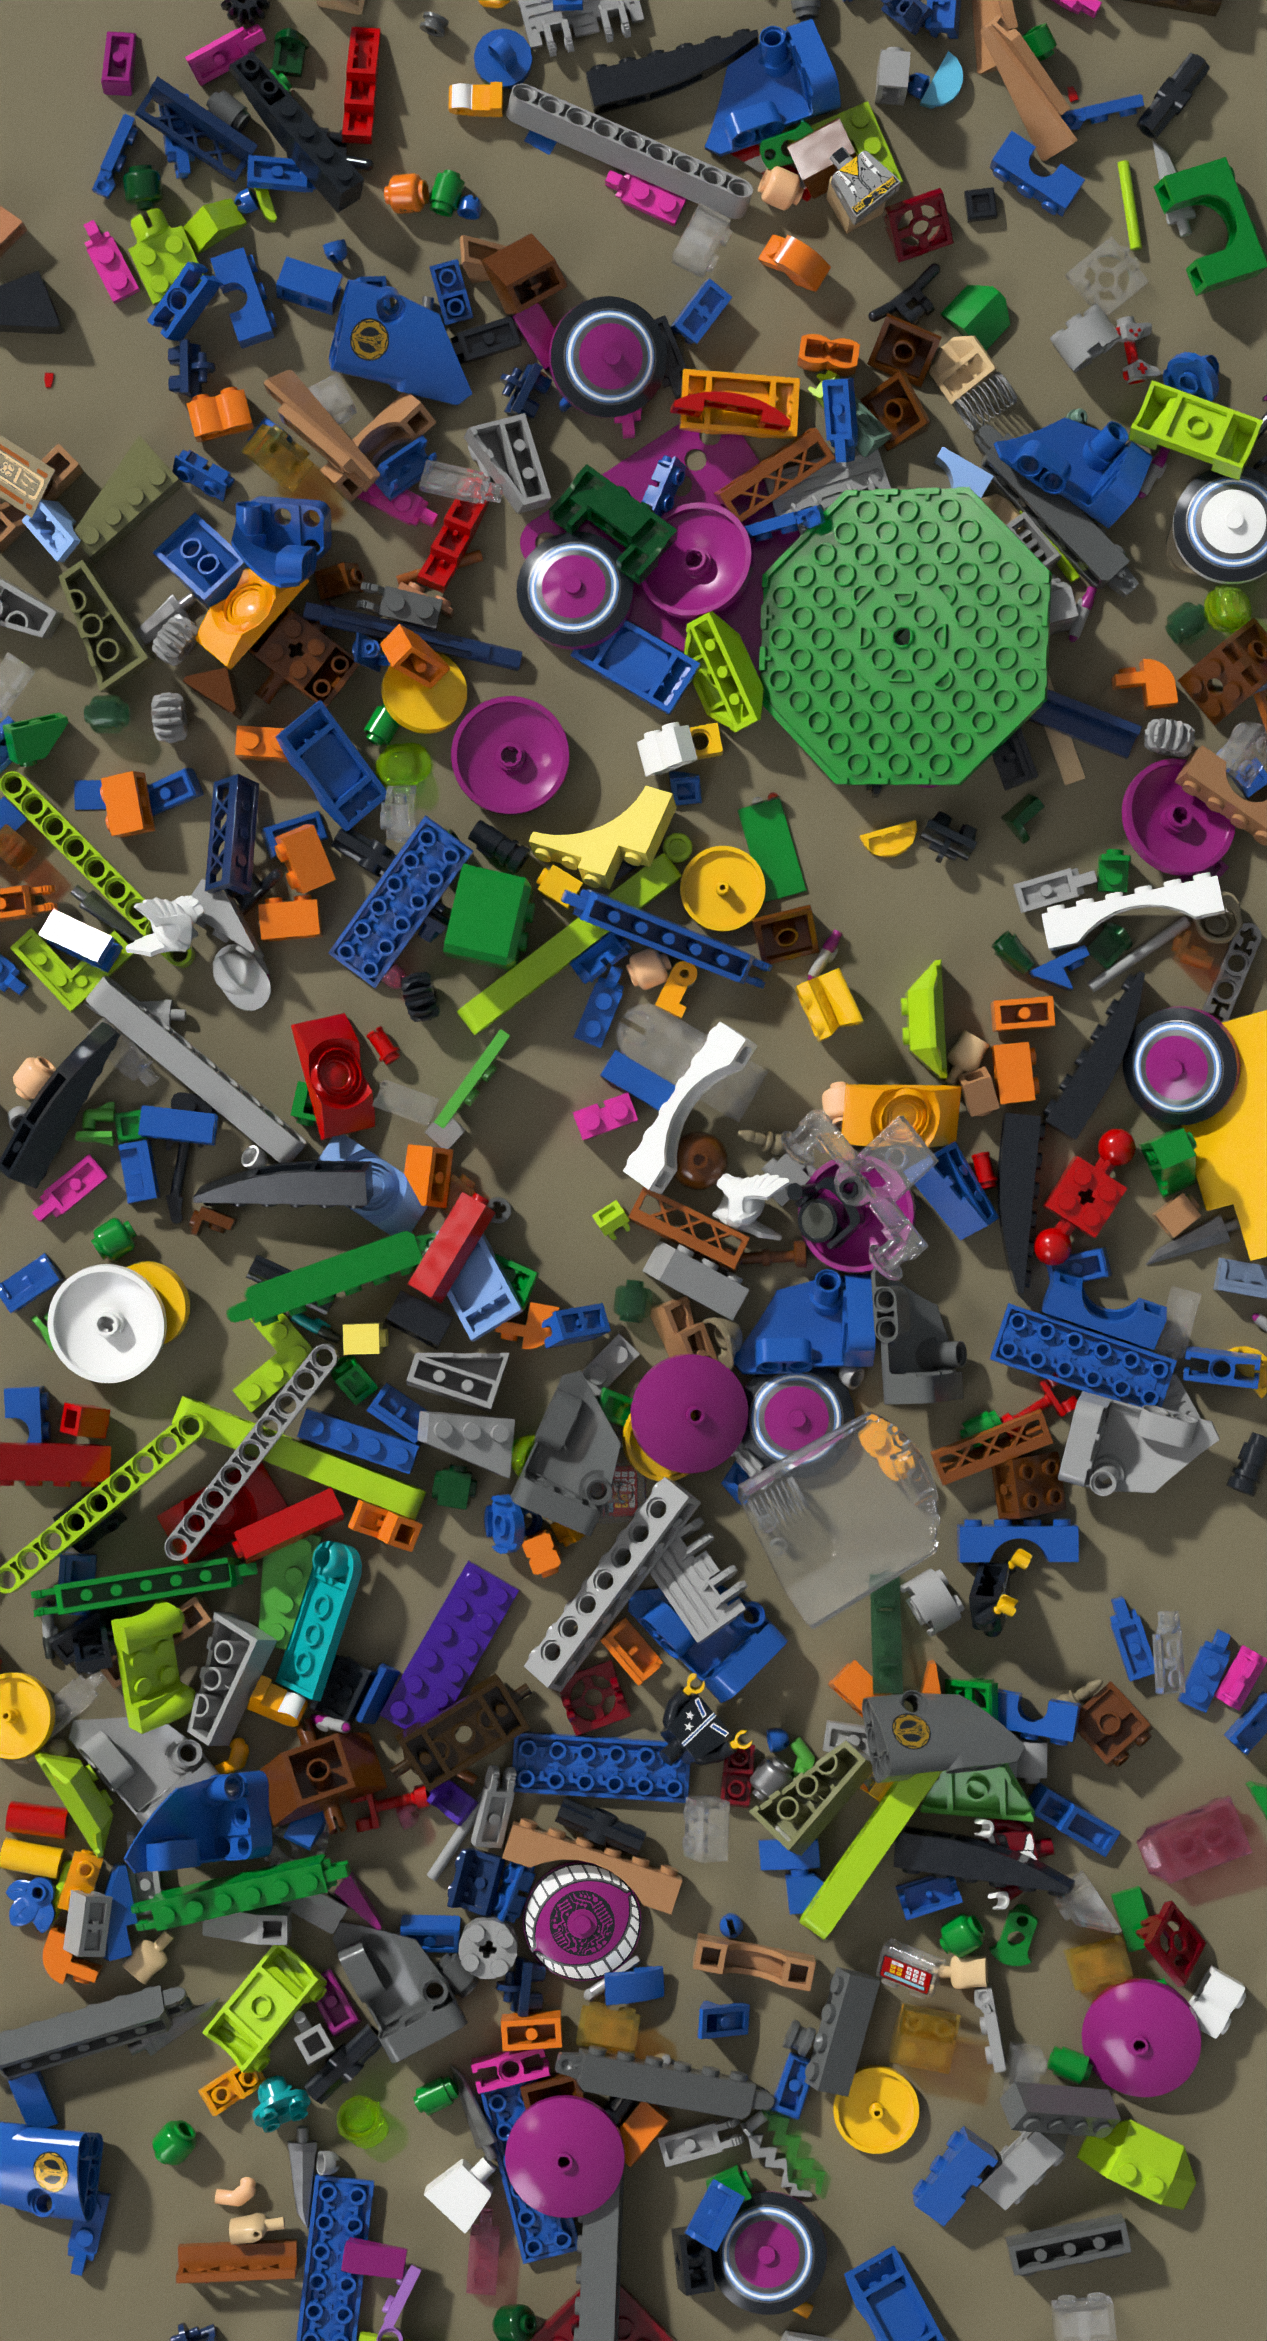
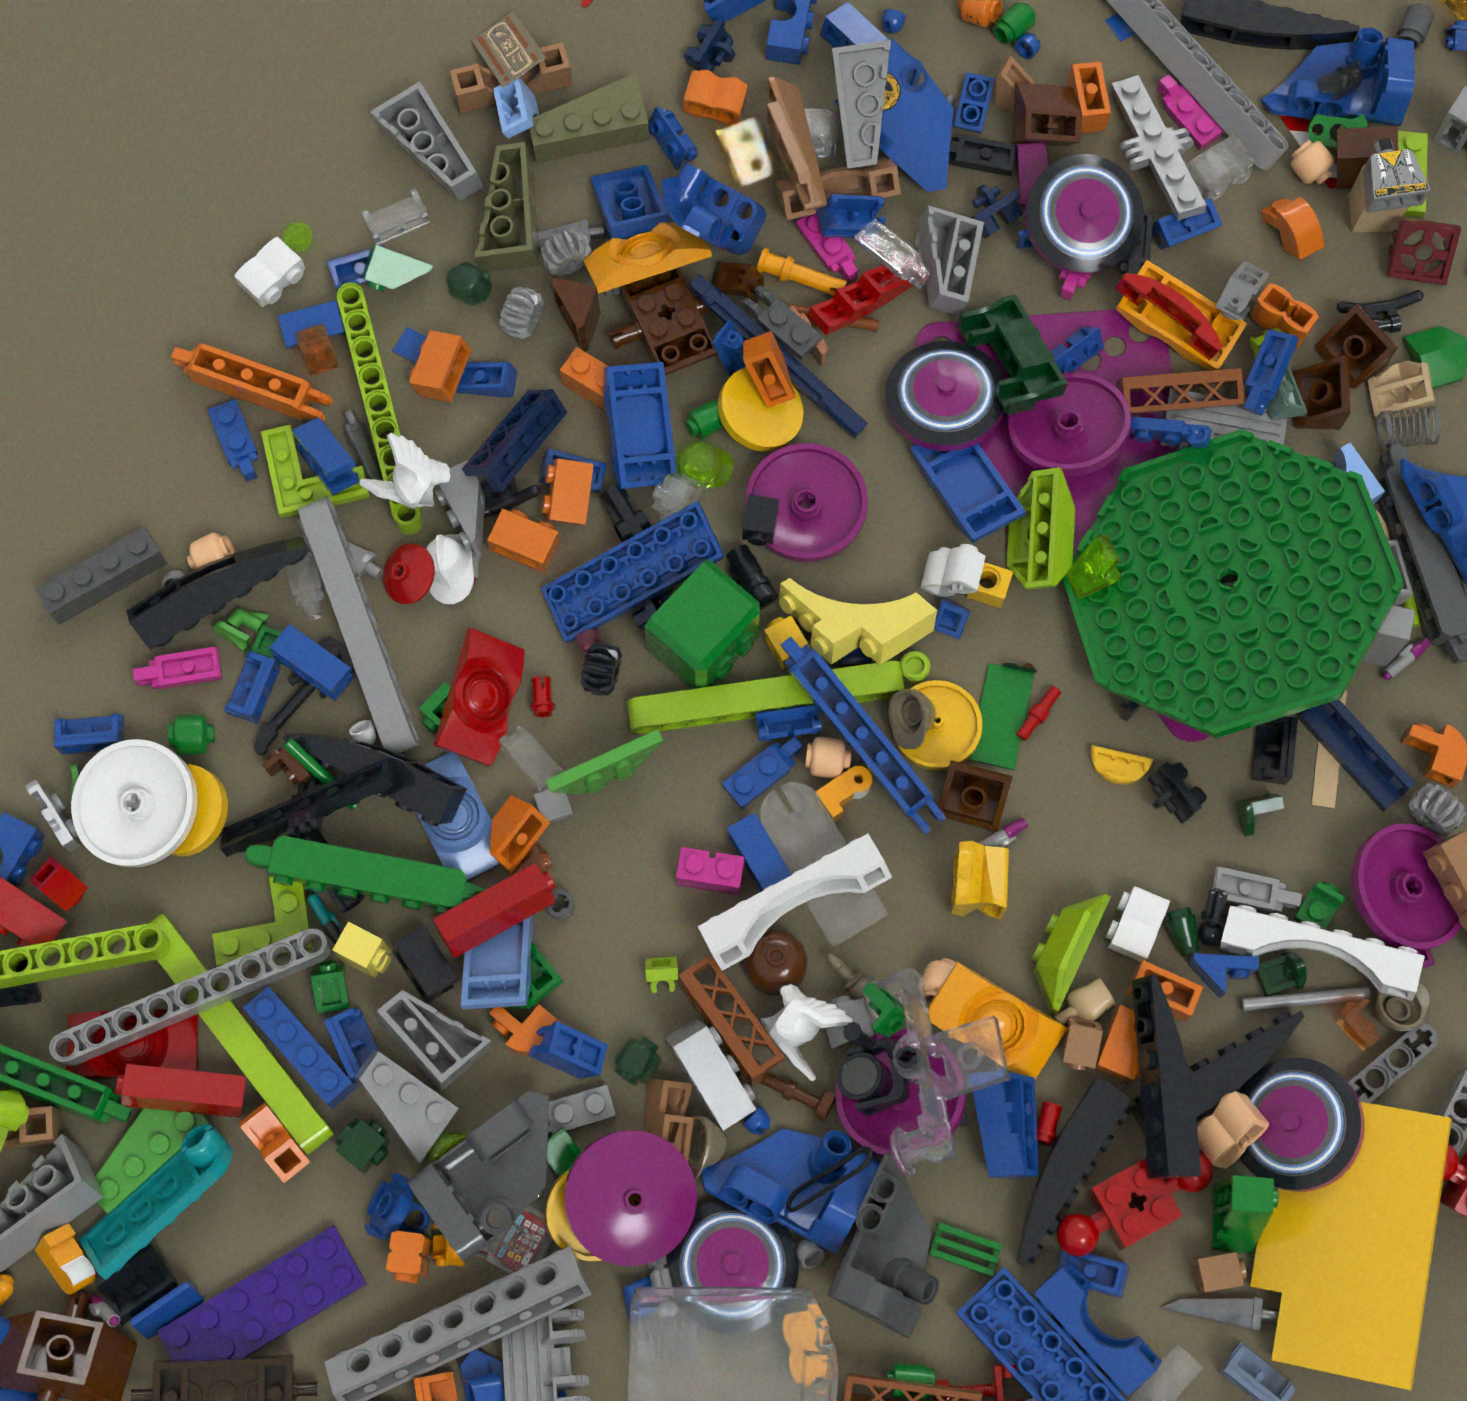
camera: 25 degrees right, 15 degrees down
(38, 1361) = (52, 811): none -> light grey wing
(220, 1001) = (408, 573): none -> red dish
(242, 1213) = (310, 764): none -> green piece
(251, 1249) = (308, 807): none -> black hinge
(353, 353) = (860, 88): none -> light grey wing
(375, 546) = (787, 269): none -> light orange pin
(483, 797) = (760, 520): none -> black brick
(552, 232) = (1091, 94): none -> orange brick
(637, 251) = (1157, 148): none -> light grey hinge
(700, 898) = (910, 717): none -> dark tan hat
(755, 1296) = (757, 1121): none -> blue hinge
(767, 94) = (1342, 81): none -> clear smoke hinge
(781, 353) = (1242, 285): none -> light grey hinge
(785, 685) = (1095, 568): none -> clear neon green slope
(801, 832) = (1038, 713): none -> red bar
(810, 1155) = (890, 1010): none -> green bracket
(834, 1332) = (826, 1172): none -> black piece
(973, 968) = (1137, 924): none -> white brick
(995, 1300) = (992, 1258): none -> green tile
(1032, 928) = (1211, 931): none -> black axle
(1063, 1096) = (1165, 1086): none -> black slope
(1130, 1098) = (1230, 1129): none -> light nougat brick

